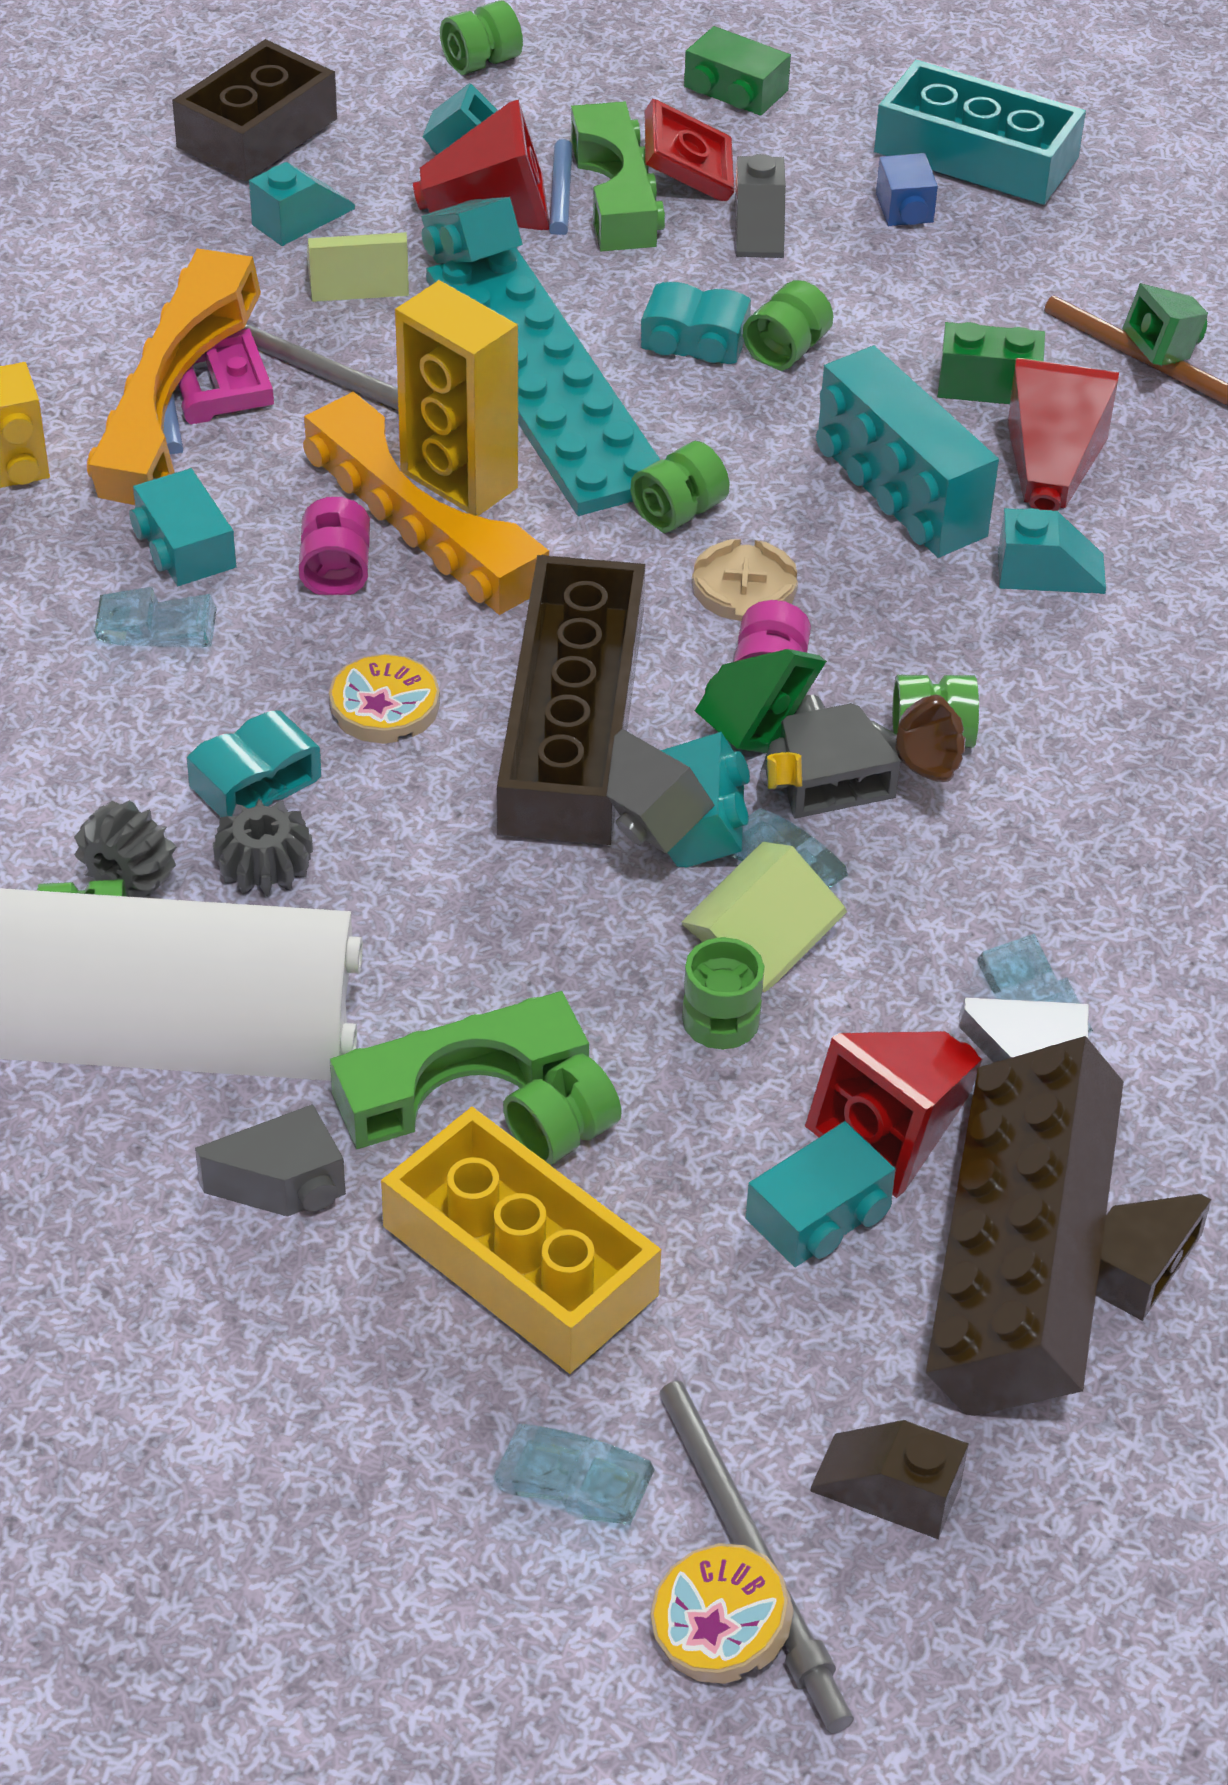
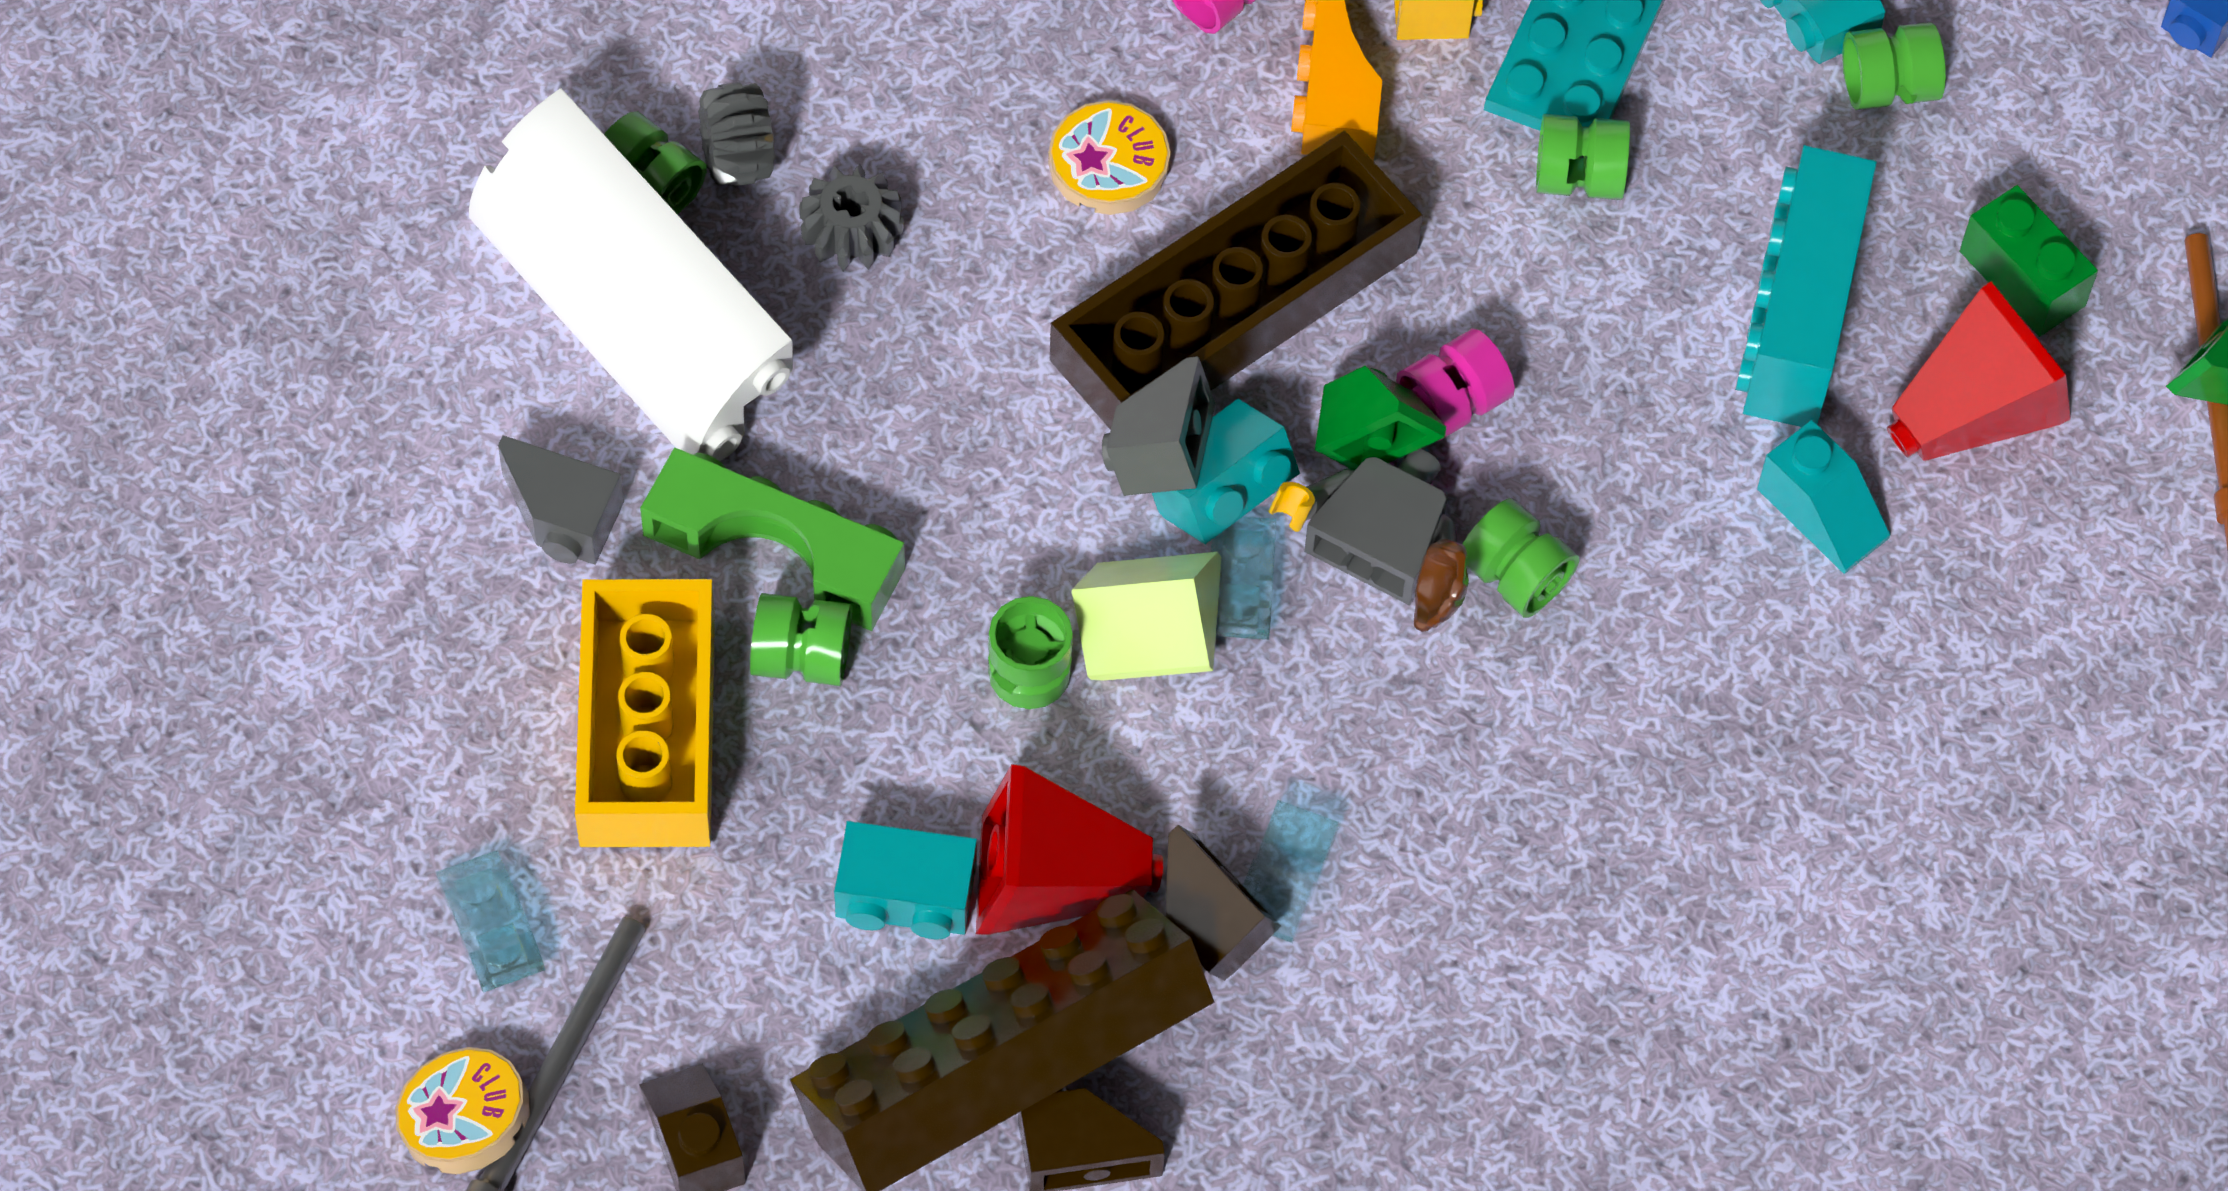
camera: 45 degrees right, 15 degrees up
(259, 761) = (927, 136): teal brick -> none
(736, 576) = (1540, 294): tan tile -> none

